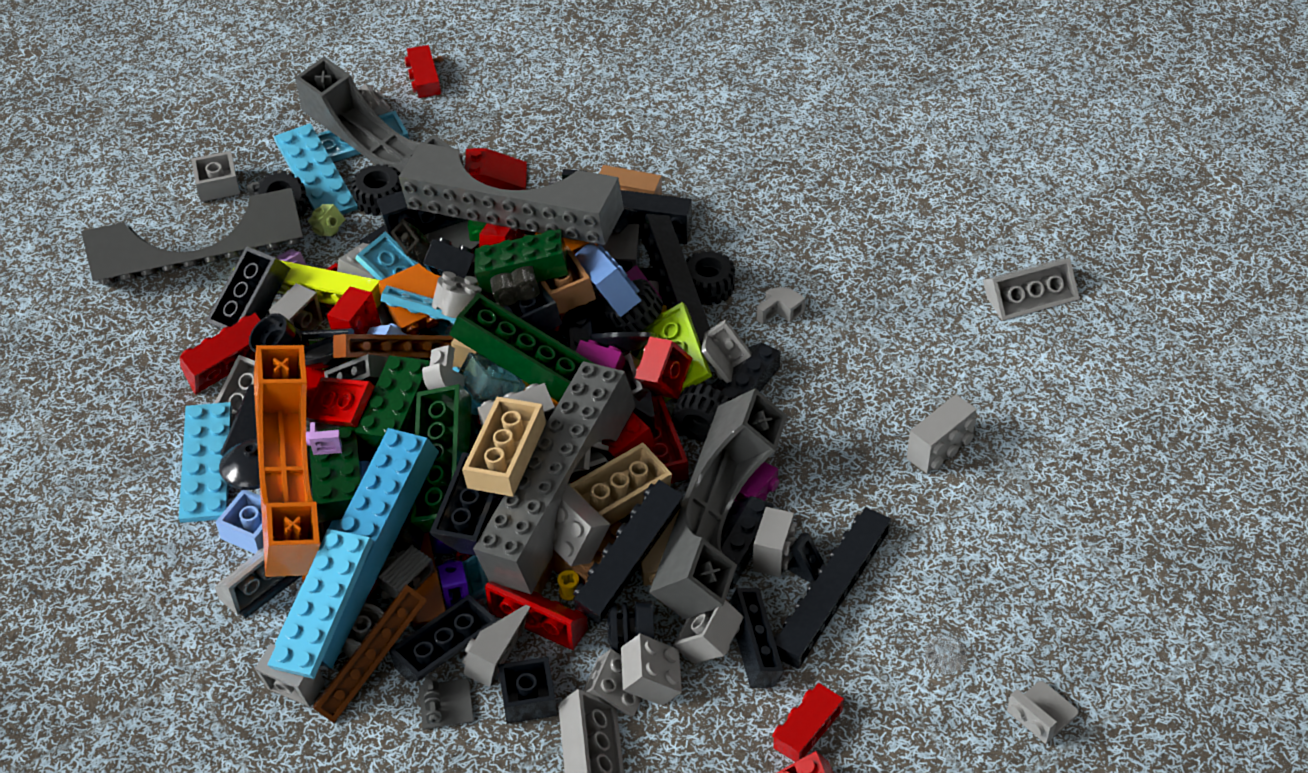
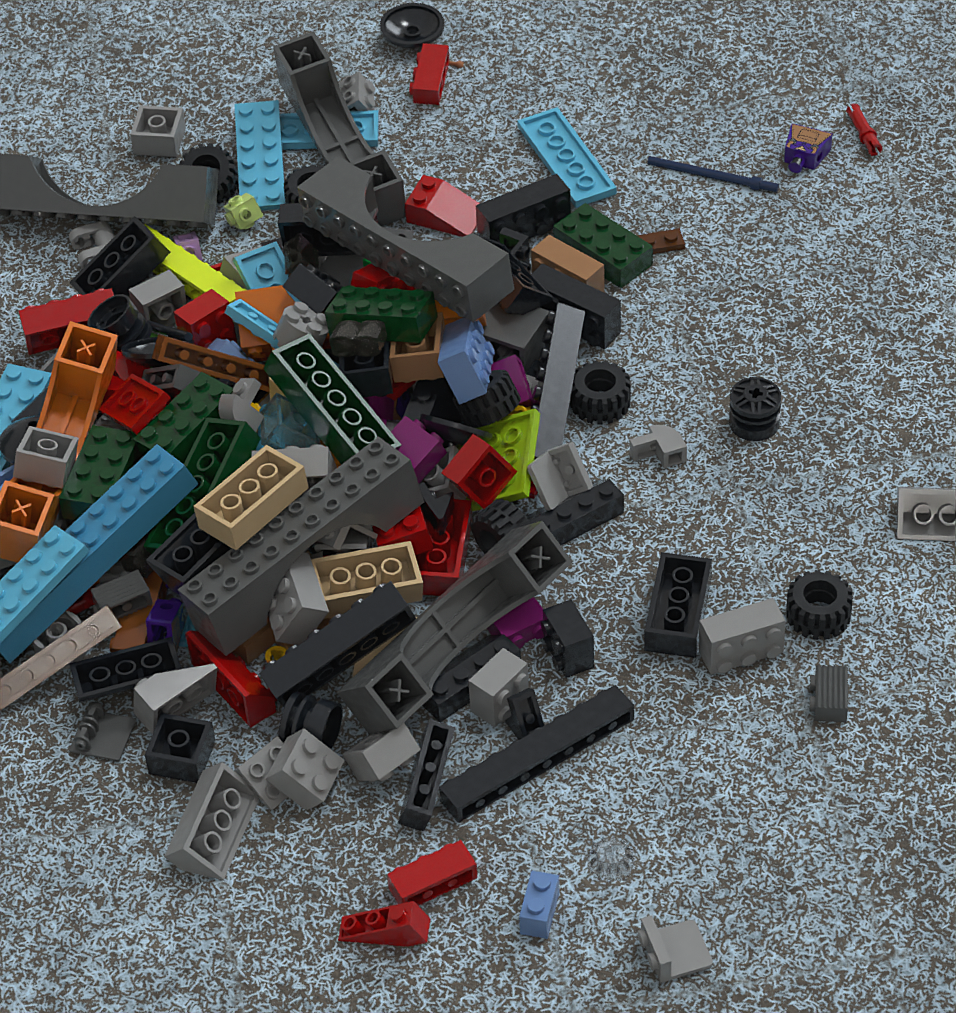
camera: 25 degrees right, 0 degrees up
(201, 276) = (101, 233): none -> light grey connector
(286, 472) = (45, 457): none -> light grey brick
(323, 441) = (95, 438): lavender bracket -> none
(387, 37) = (412, 25): none -> black dish
(569, 150) = (527, 210): none -> black brick
(570, 105) = (567, 156): none -> medium azure plate
(644, 157) = (606, 241): none -> dark green brick
(681, 149) = (665, 240): none -> reddish brown plate
(729, 85) = (754, 183): none -> dark blue bar
(752, 48) = (806, 147): none -> torso
(792, 27) = (866, 134): none -> red pin
(805, 482) = (567, 639): none -> black brick
(839, 253) = (755, 409): none -> black wheel
(874, 426) = (678, 604): none -> black brick
(913, 714) = (539, 904): none -> medium blue brick
(988, 377) = (819, 619): none -> black tyre
(1032, 457) = (830, 693): none -> dark grey brick

